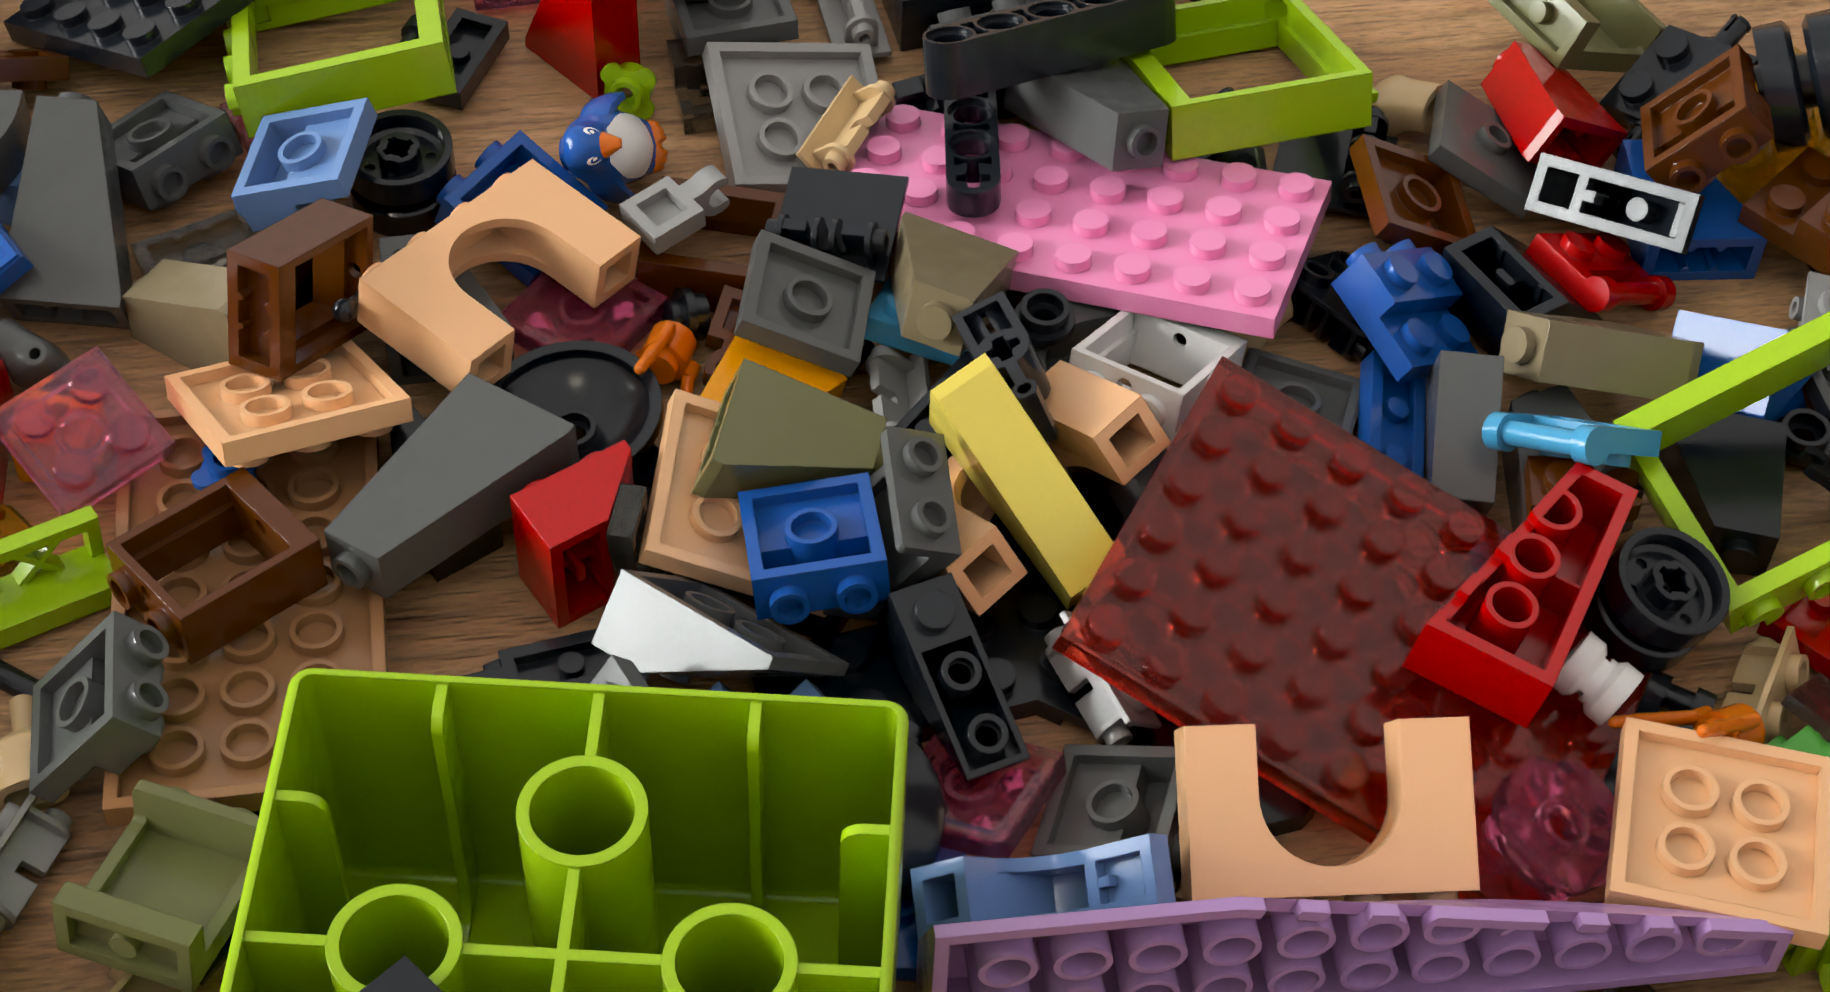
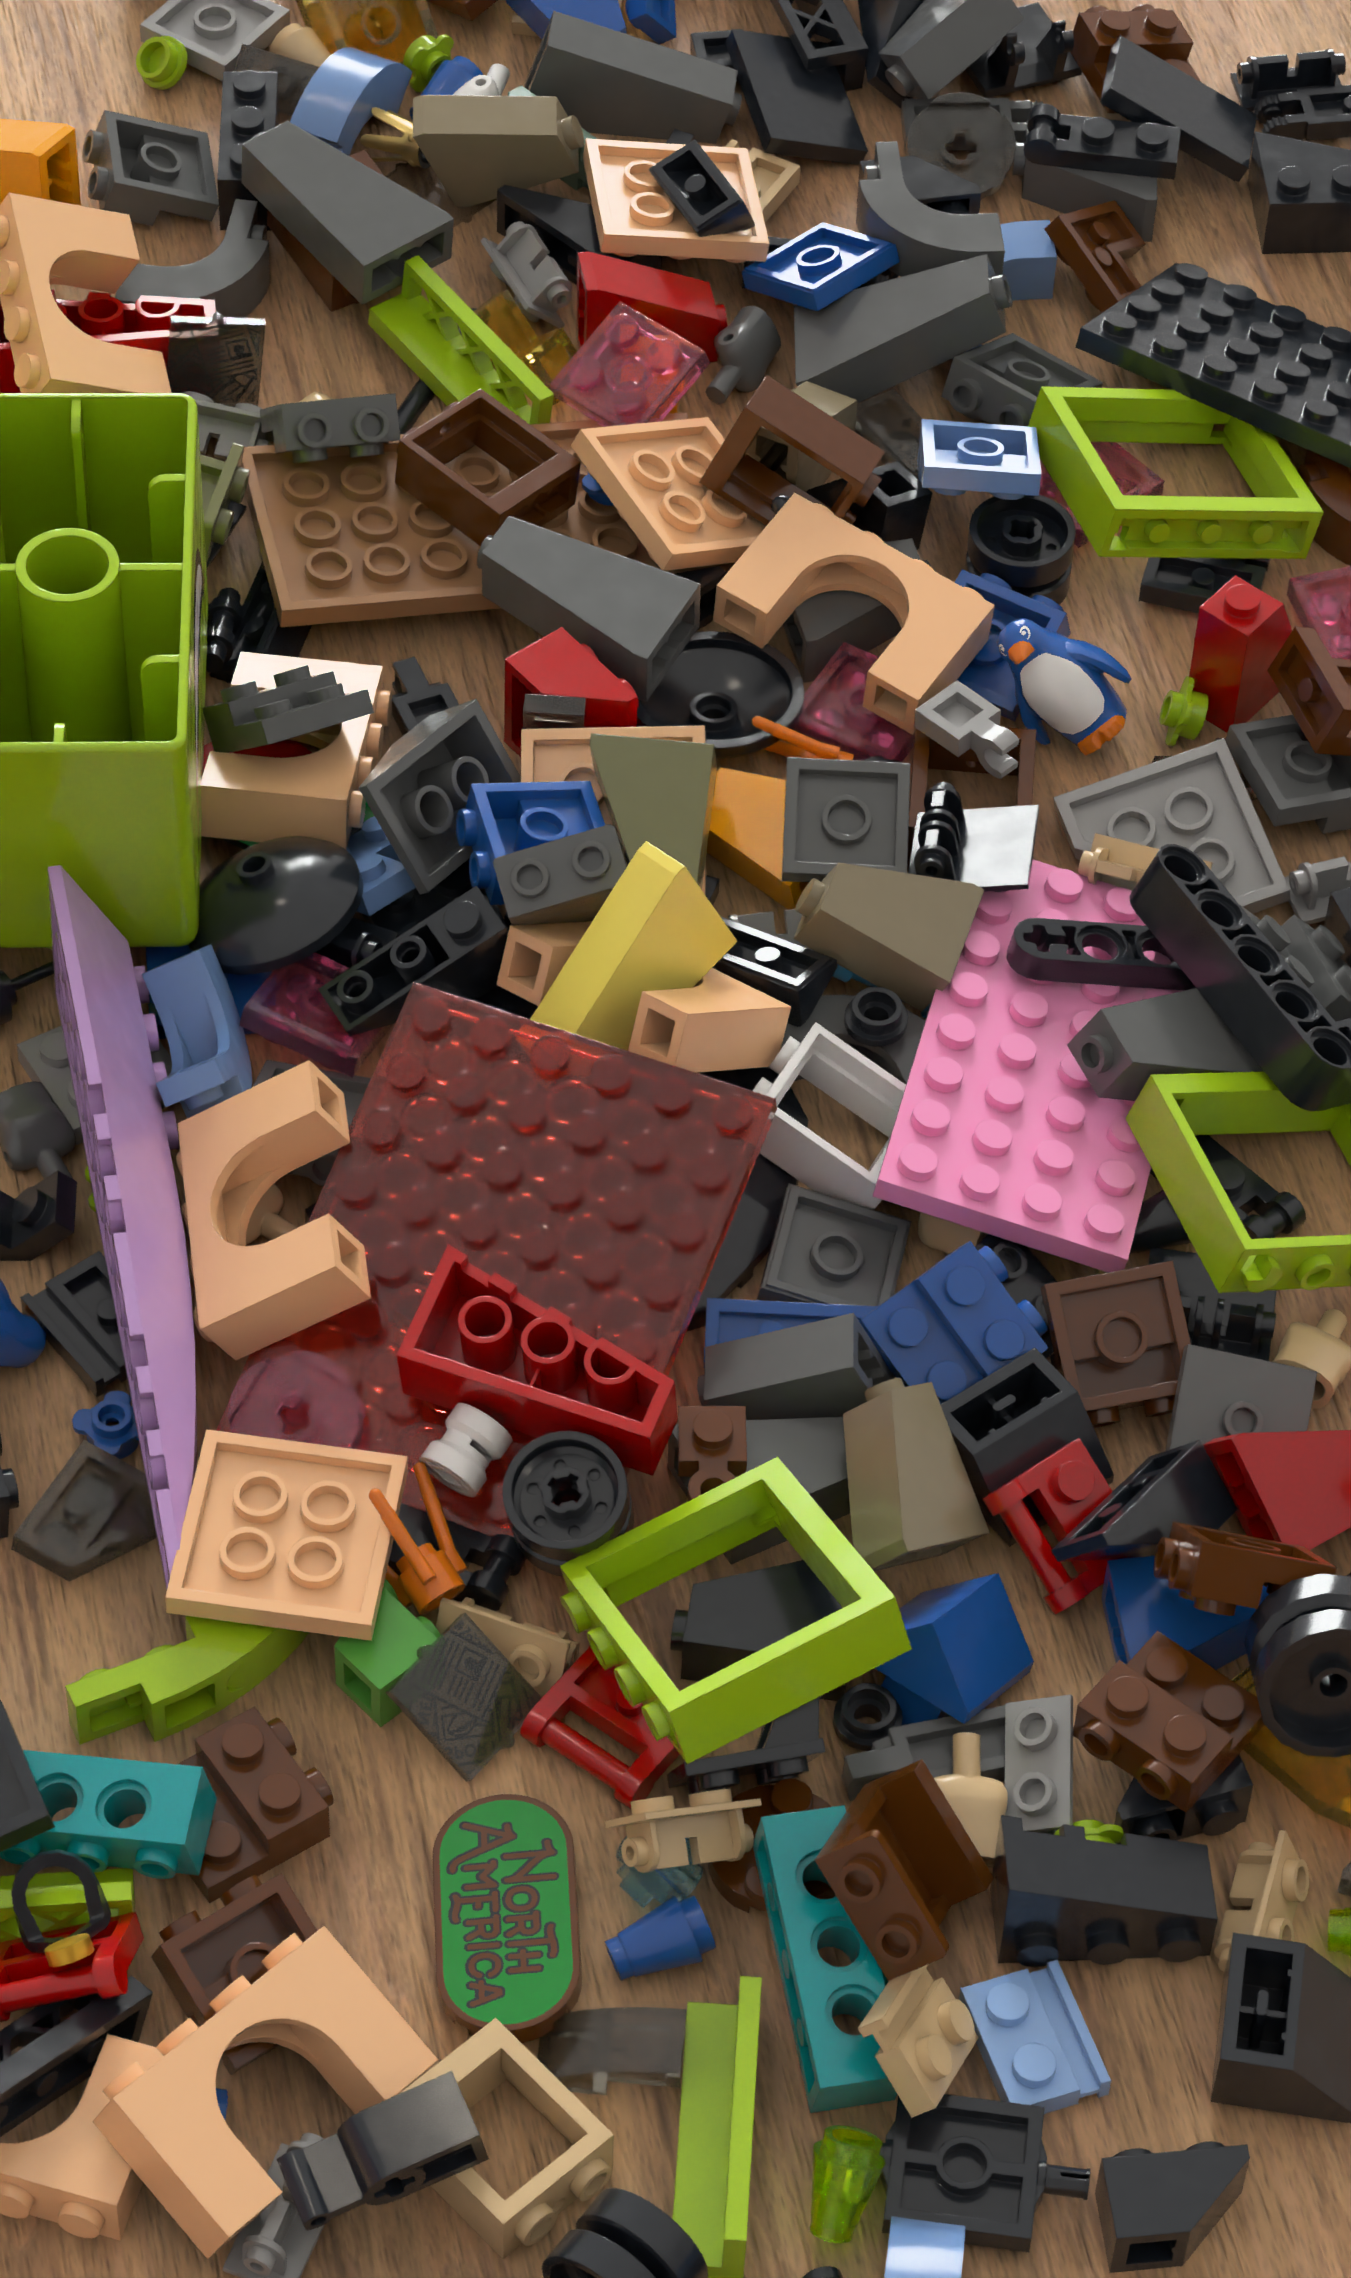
camera: 85 degrees right, 0 degrees up
(1011, 354) = (744, 944): black piece -> none
(1568, 437) = (748, 1429): dark azure plate -> none

